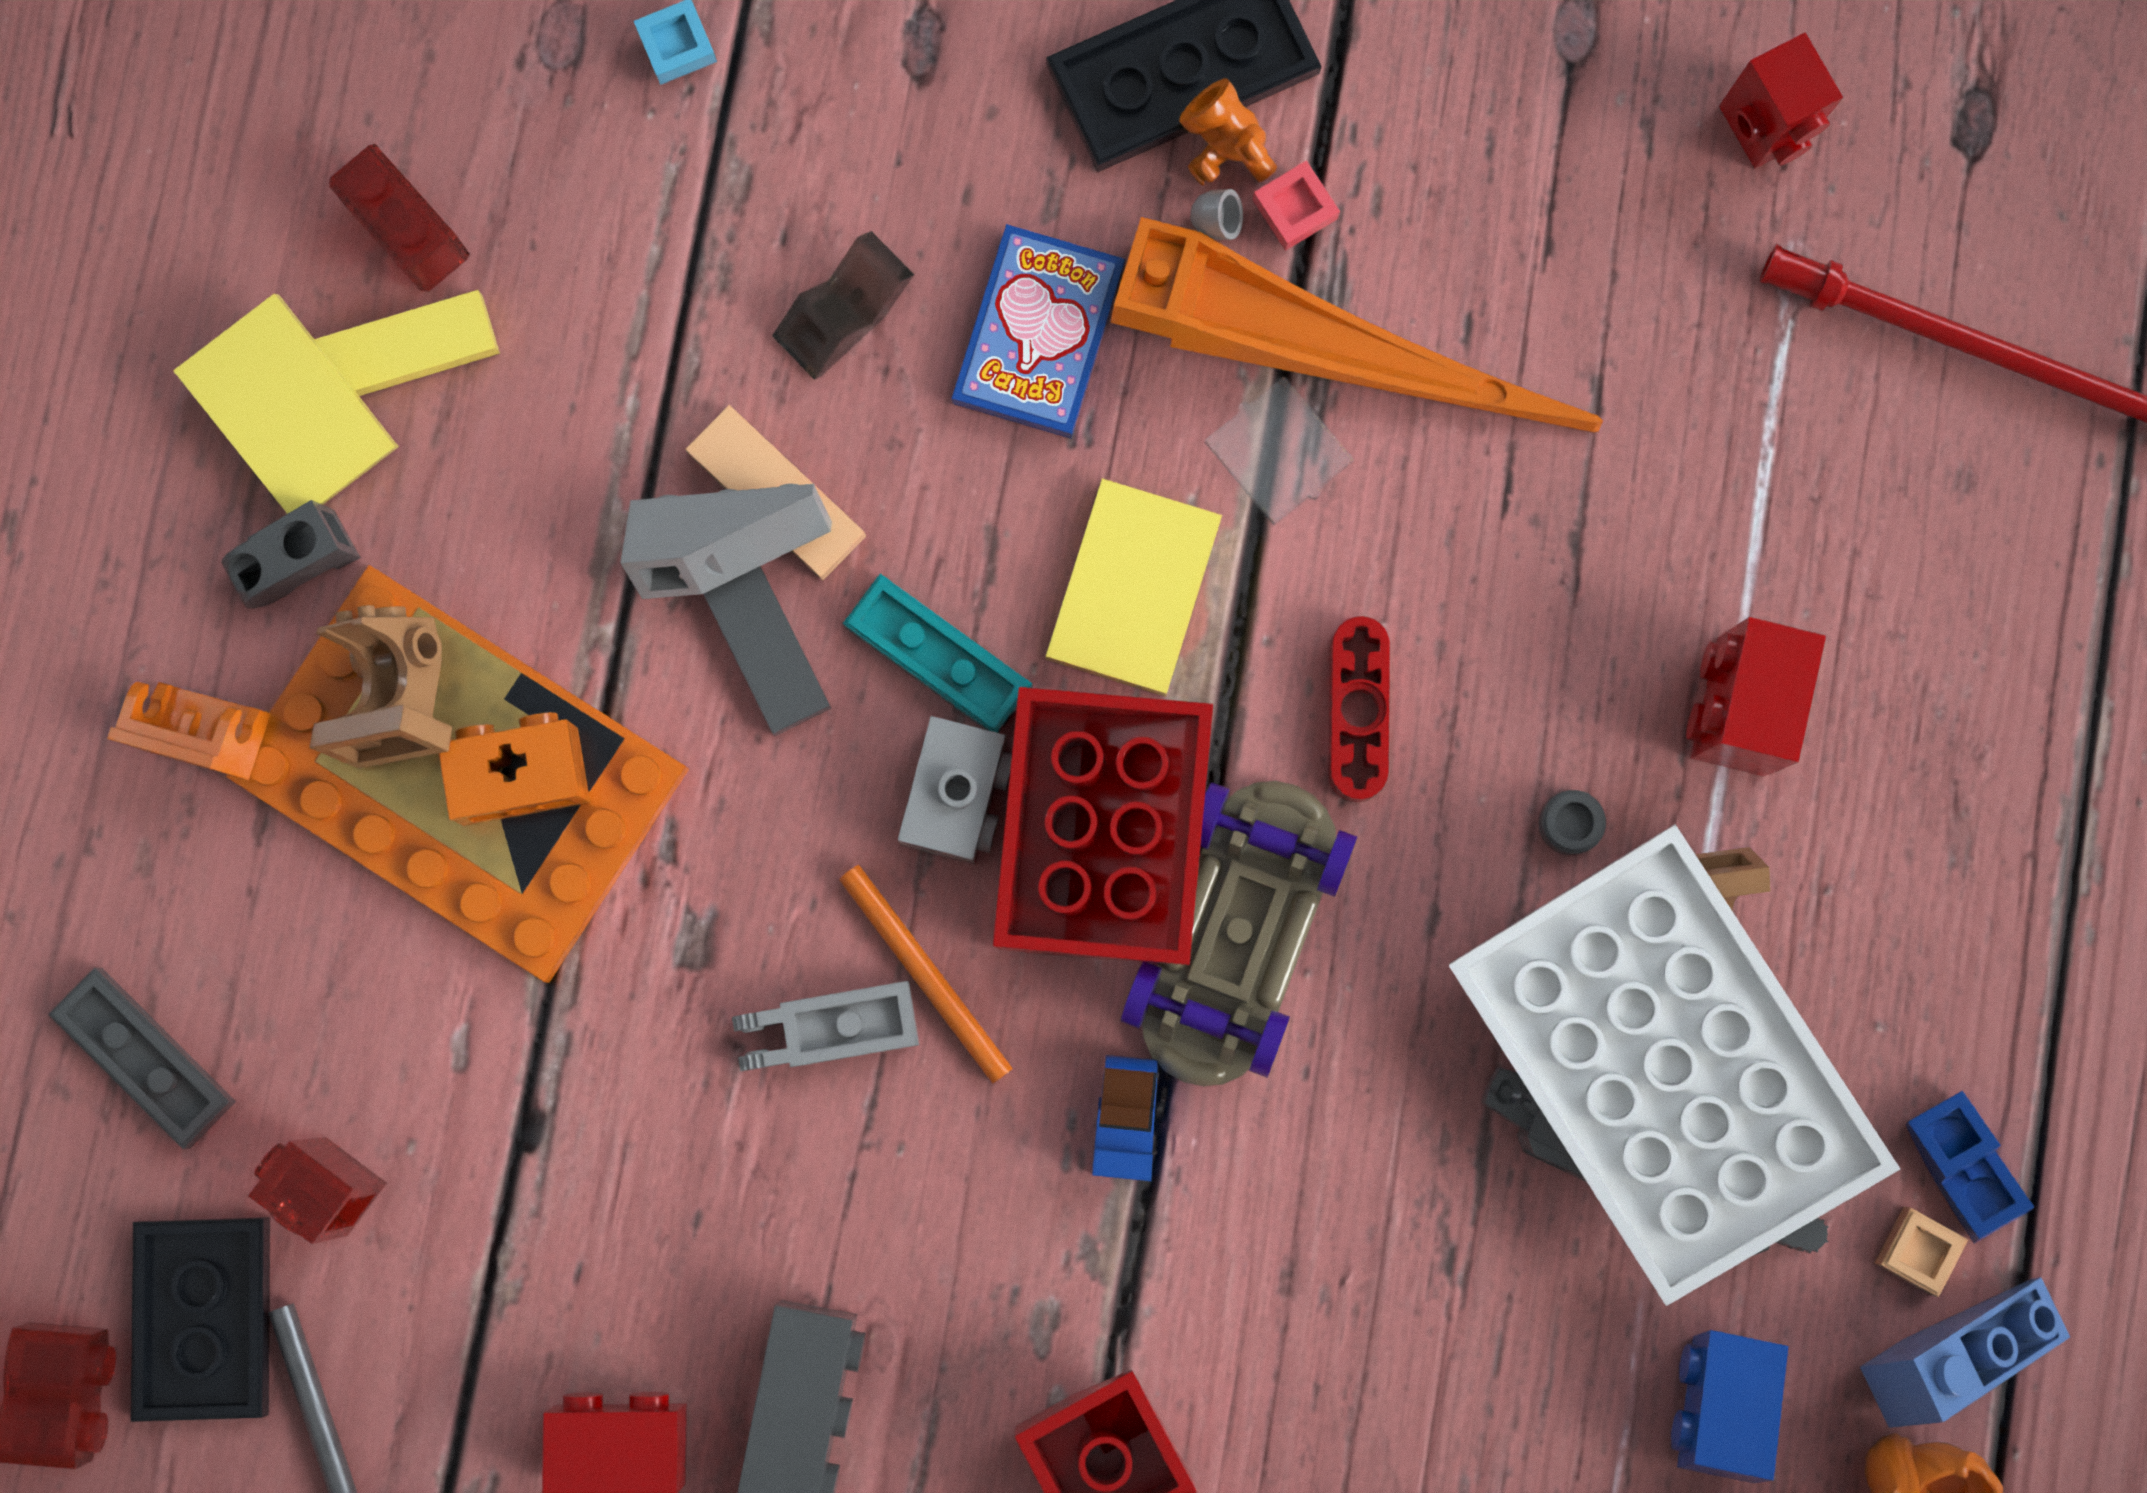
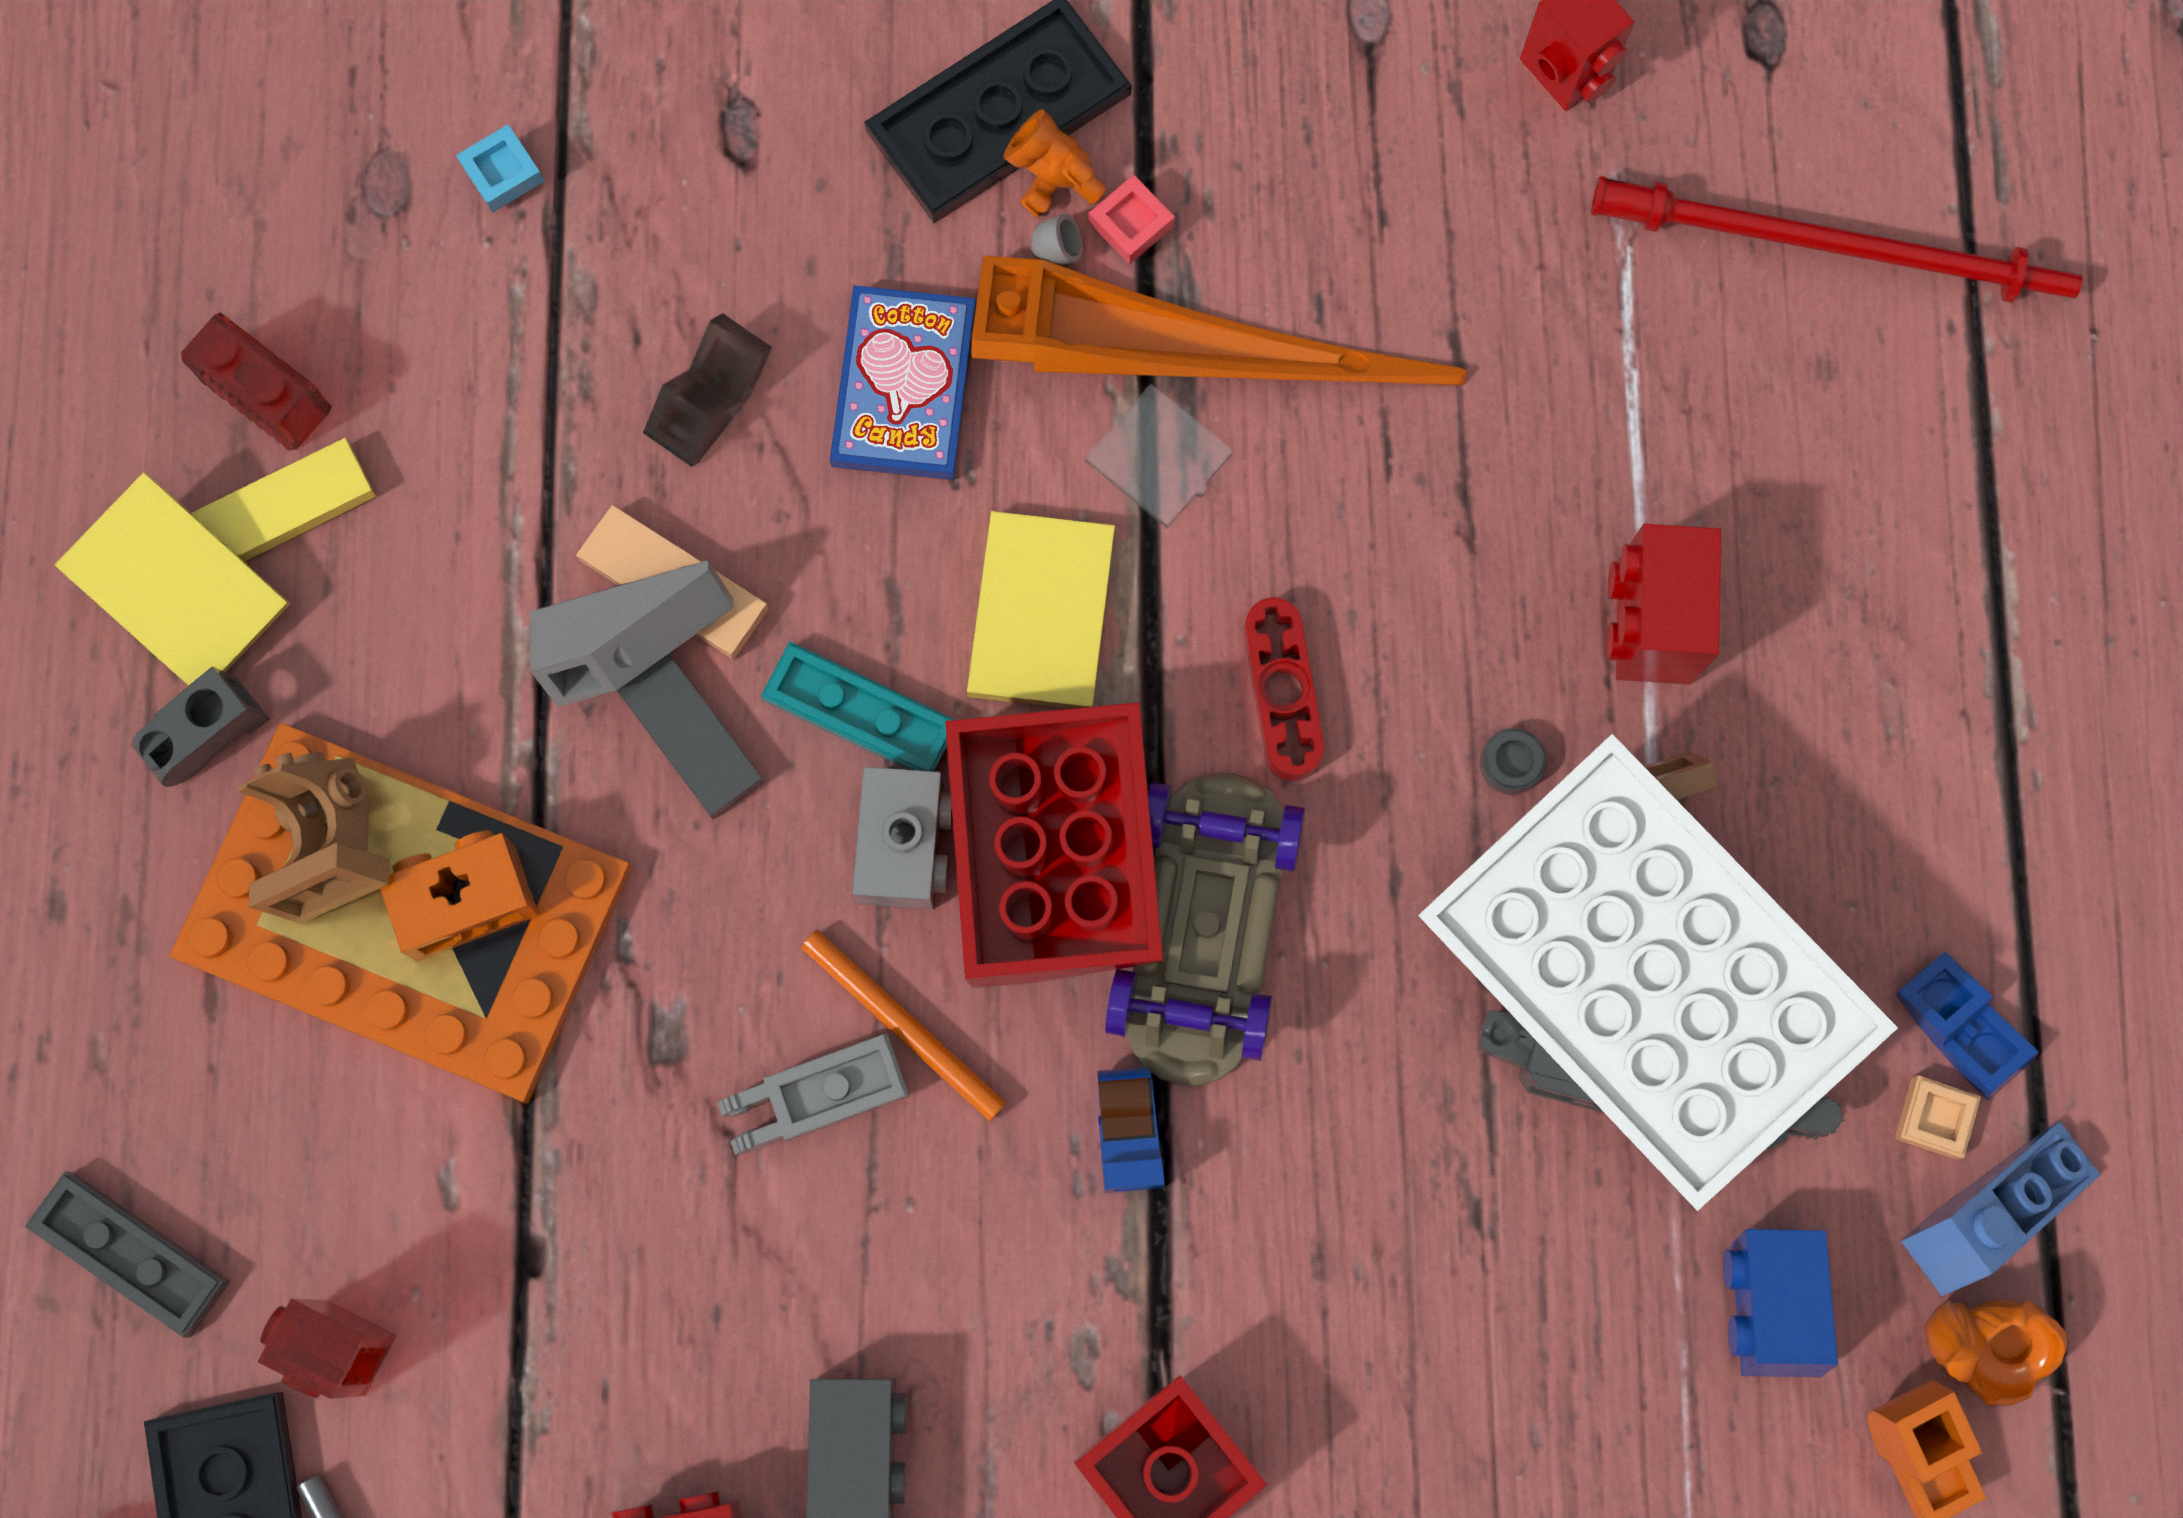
camera: 10 degrees left, 5 degrees down
(192, 728) = (127, 914): orange hinge -> none

